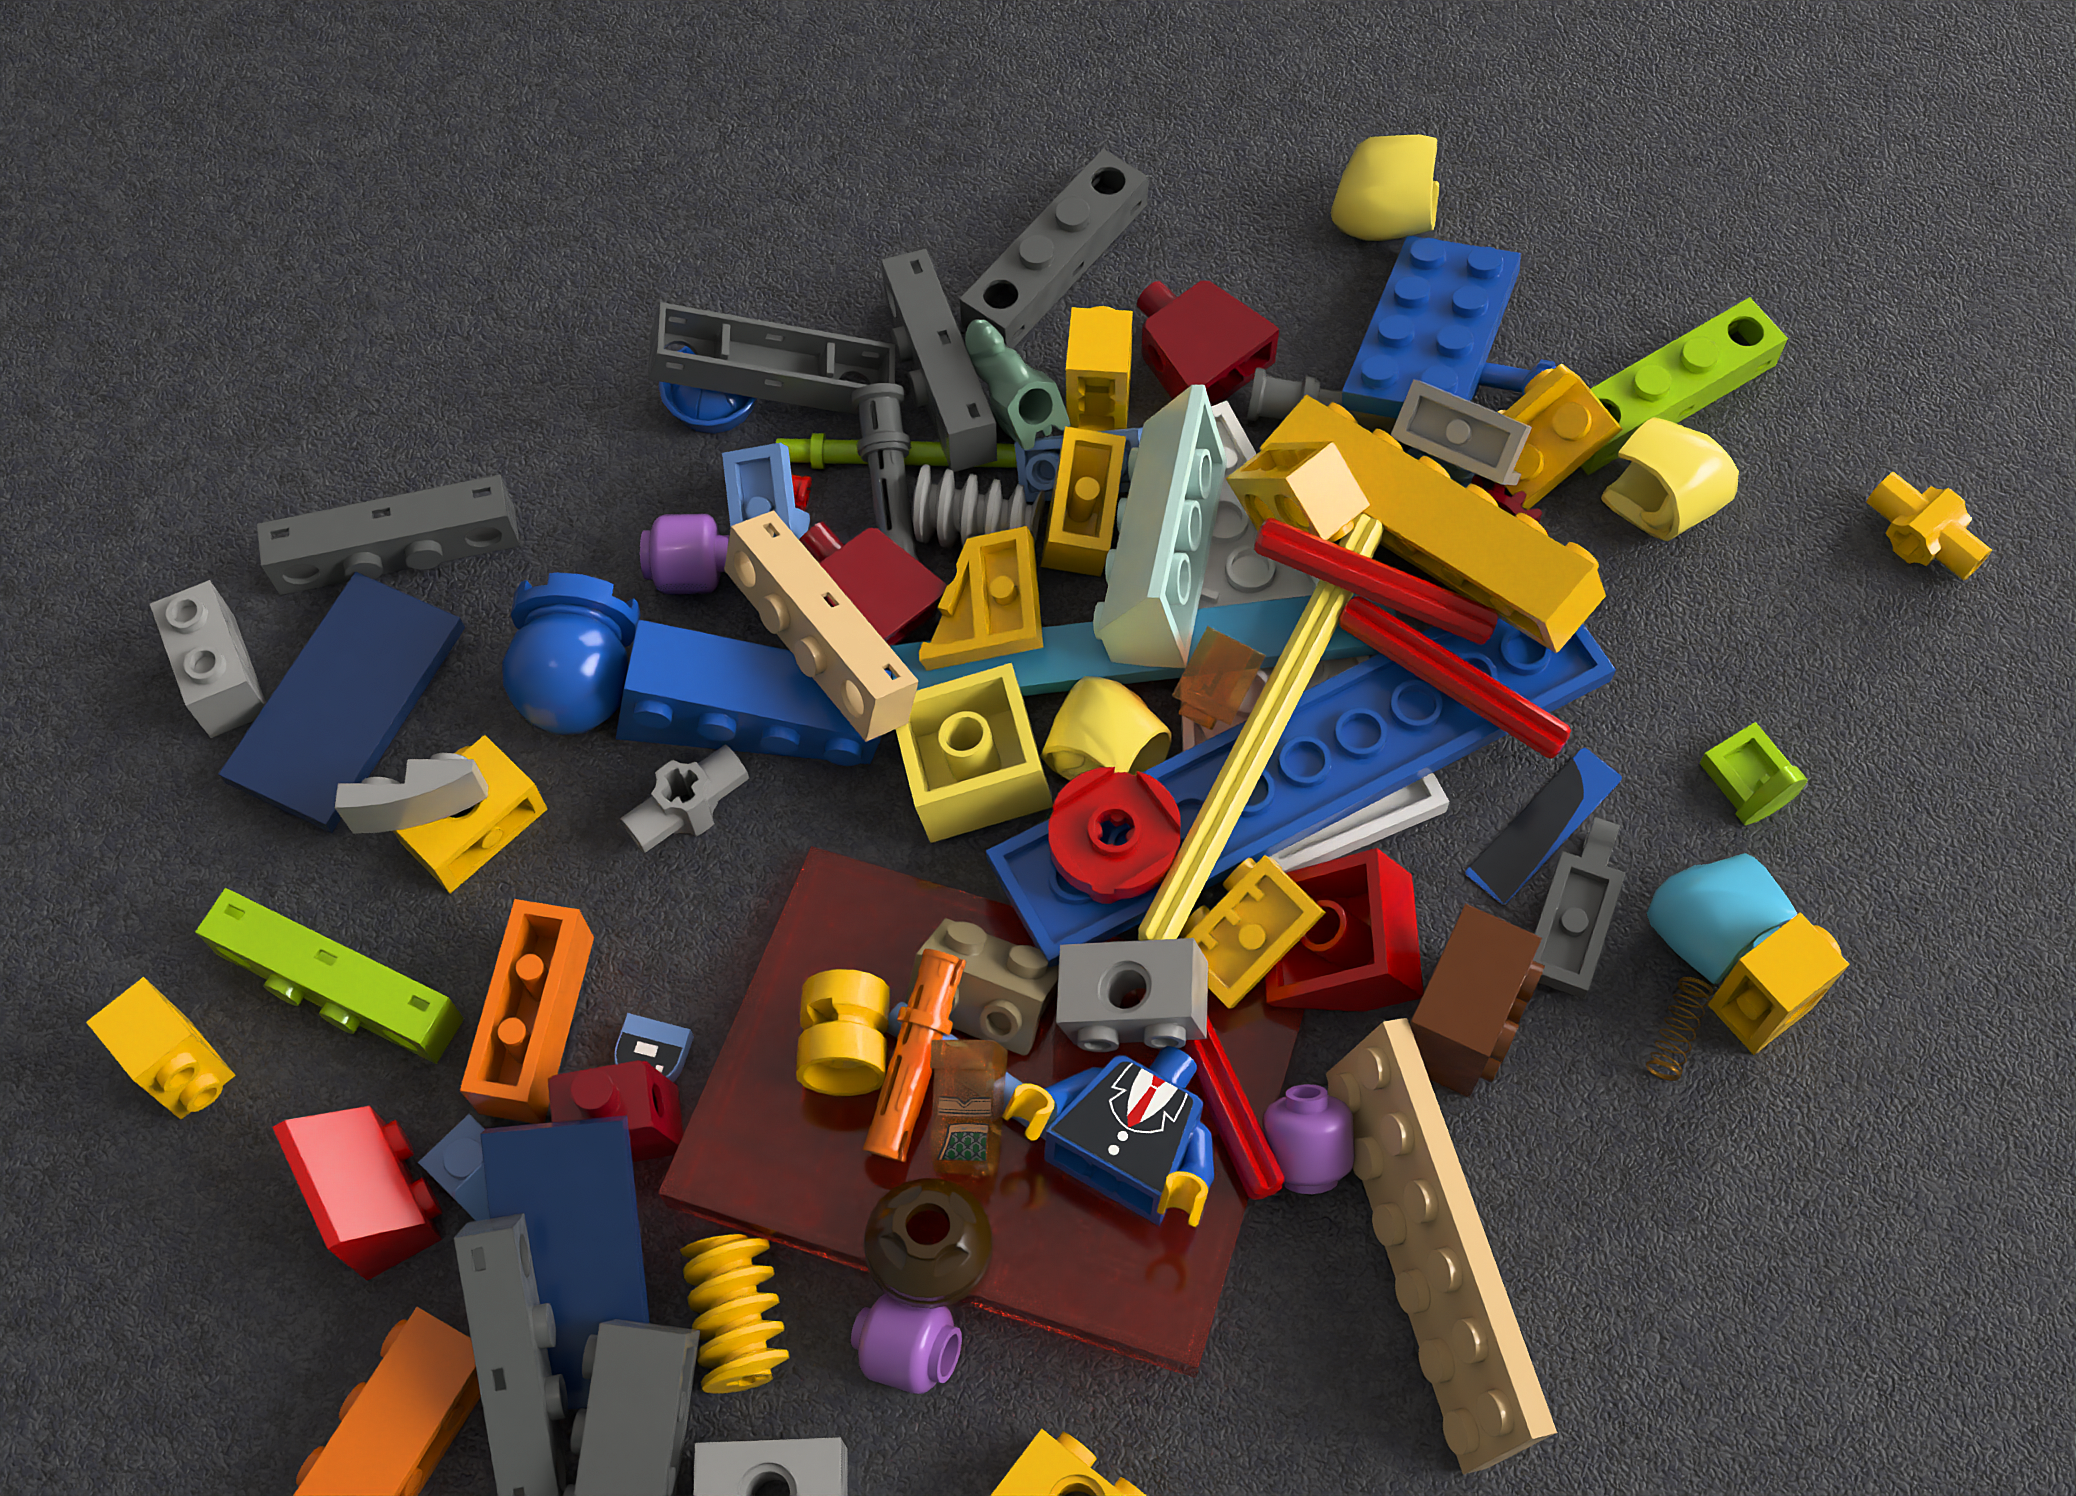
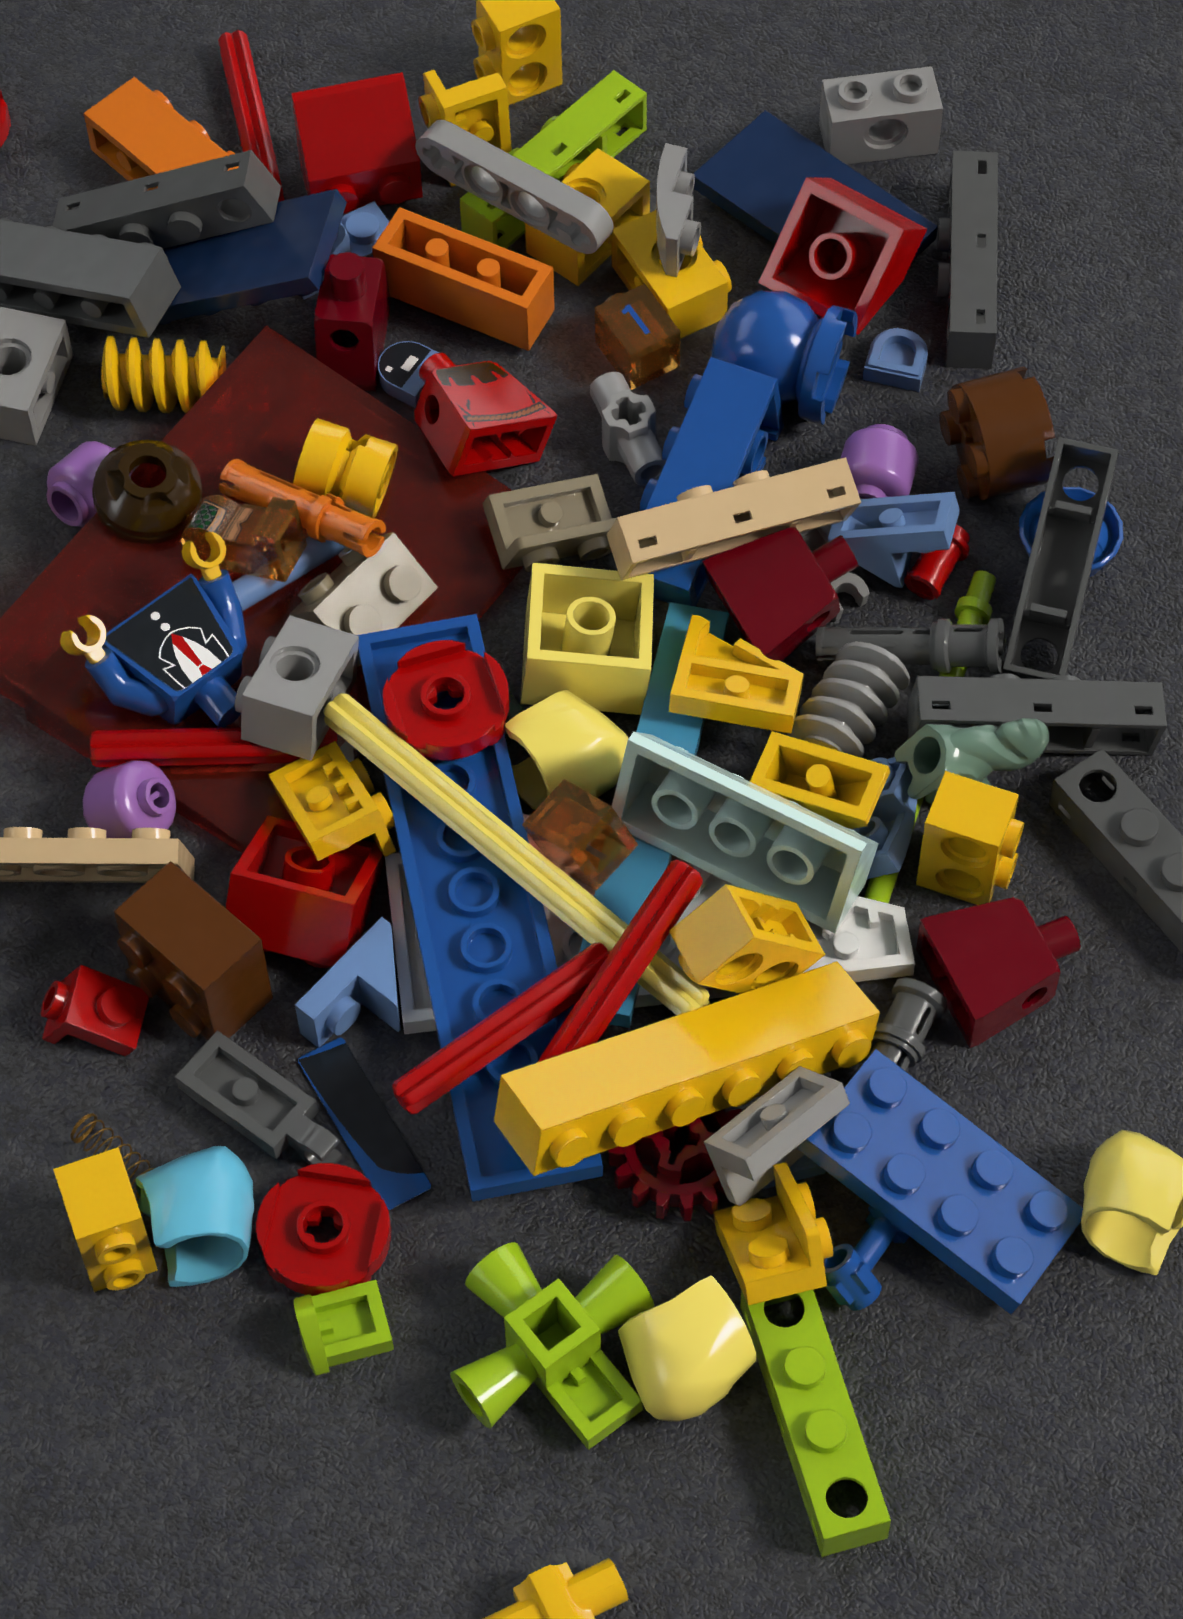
camera: 105 degrees right, 5 degrees down
(303, 1359) = (247, 100): none -> red axle
(312, 1073) = (474, 106): none -> yellow bracket
(377, 893) = (619, 192): none -> yellow brick
(406, 974) = (514, 186): none -> light grey beam
(426, 631) = (841, 250): none -> red slope
(517, 568) = (897, 359): none -> medium blue tile
(559, 823) = (637, 336): none -> clear orange brick
(625, 445) = (998, 433): none -> reddish brown brick
(715, 942) = (480, 416): none -> red torso
(834, 829) = (550, 522): none -> dark tan bracket
(1440, 872) = (360, 977): none -> medium blue slope
(1543, 1104) = (95, 1010): none -> red bracket
(1678, 775) = (302, 1202): none -> red plate
(1706, 586) = (554, 1344): none -> lime brick

